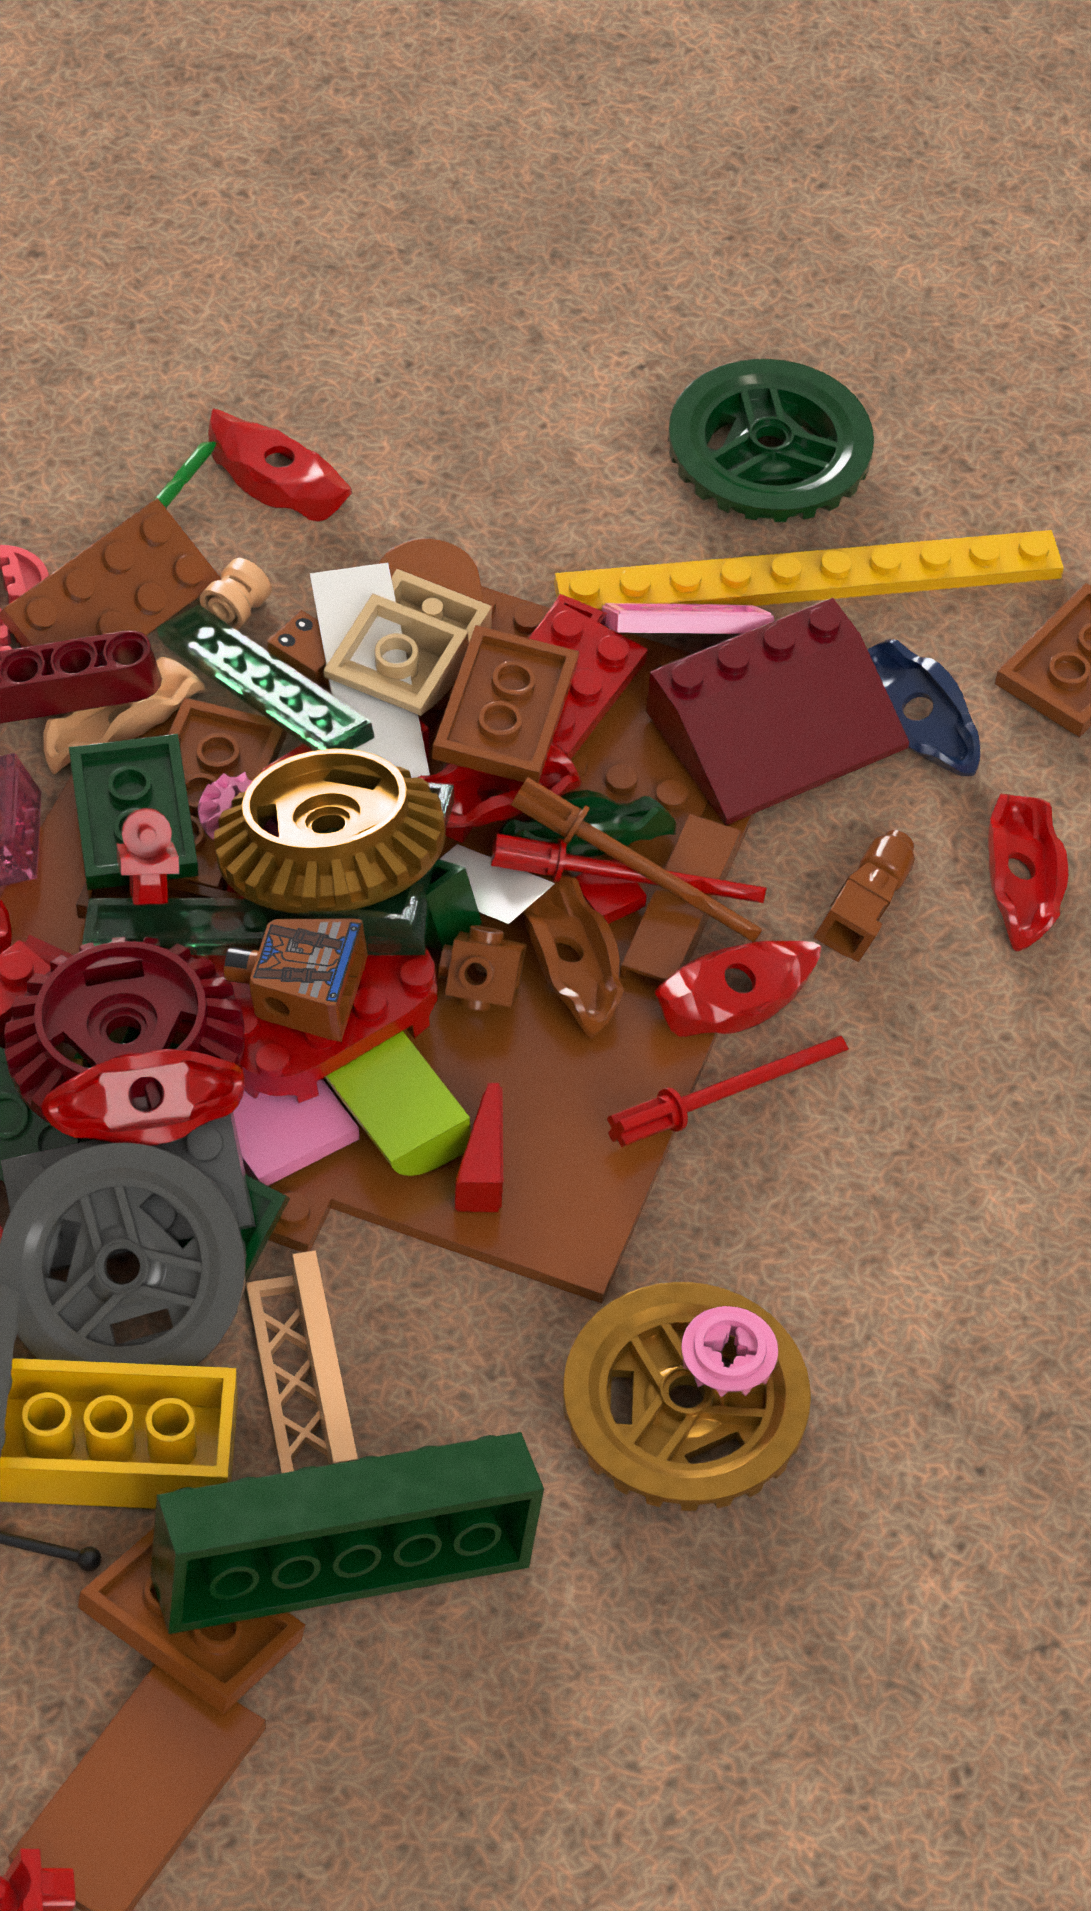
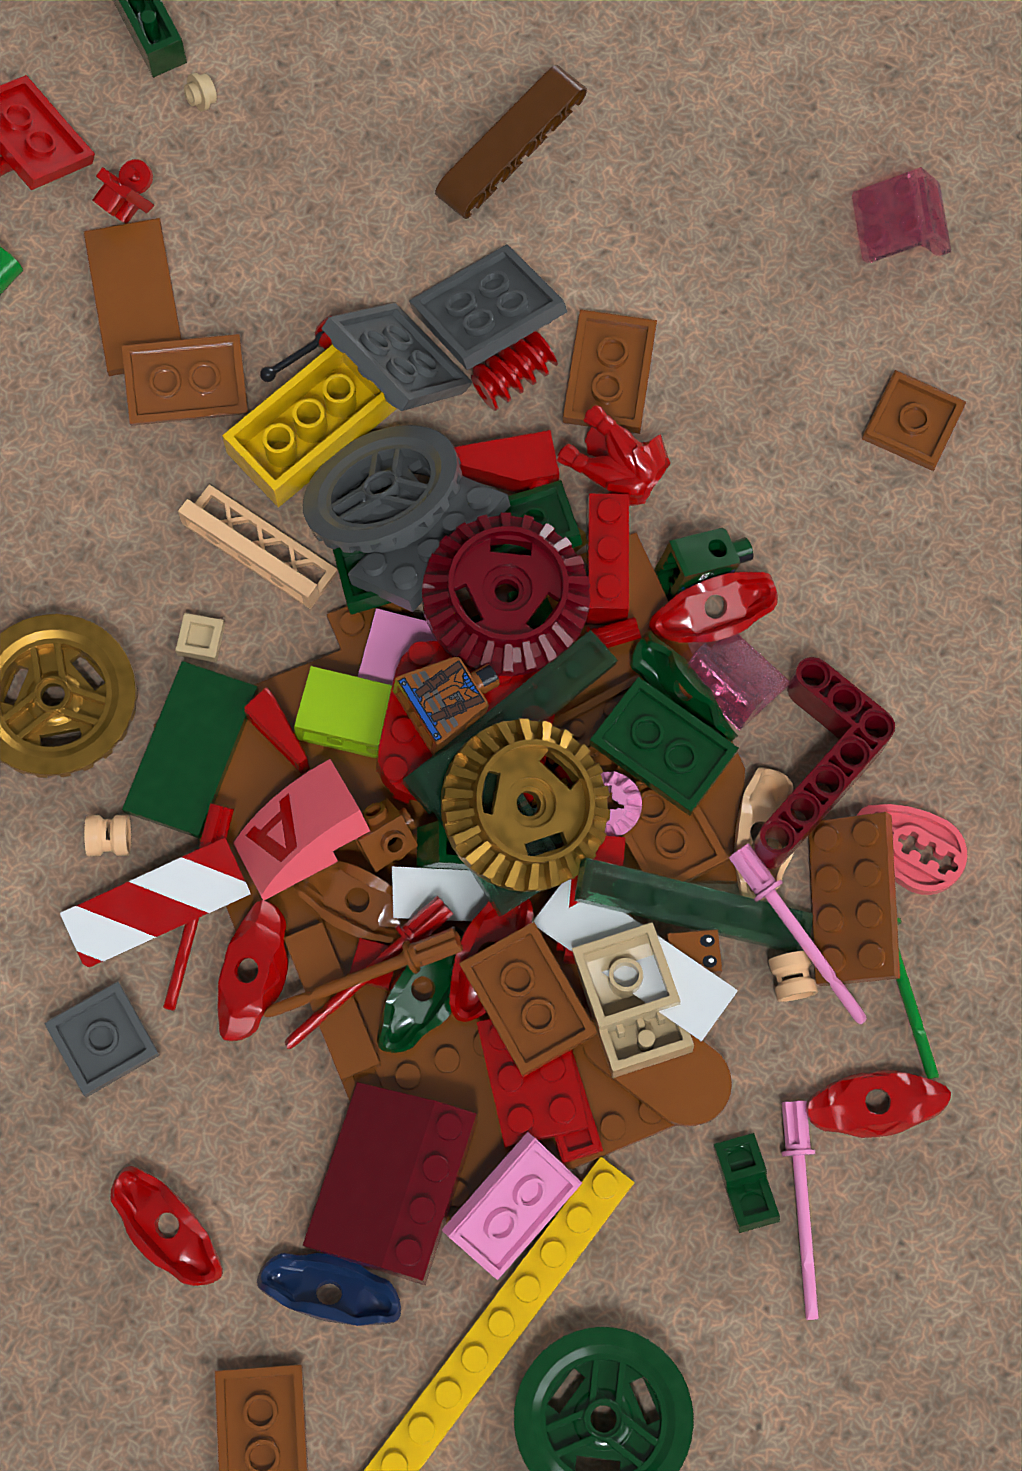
camera: 140 degrees right, 20 degrees up
(52, 893) = (666, 669): none -> dark green piece
(147, 856) = (598, 691): hips -> none
(181, 647) = (764, 885): none -> bright pink piece
(193, 1093) = (438, 548): red piece -> none
(344, 1531) = (138, 458): dark green brick -> none
(389, 486) = (798, 1145): none -> bright pink piece
(459, 504) = (746, 1183): none -> dark green slope
(464, 1335) = (200, 637): none -> tan plate
(565, 1028) = (300, 830): none -> coral slope
(589, 1227) = (190, 749): none -> dark green tile
(754, 1343) = (50, 707): bright pink gear -> none
(757, 1225) = (107, 835): none -> light nougat wheel
(771, 1116) = (155, 903): none -> sticker
(866, 894) = (234, 1110): dark orange piece -> none
(940, 1058) = (101, 1039): none -> dark grey plate

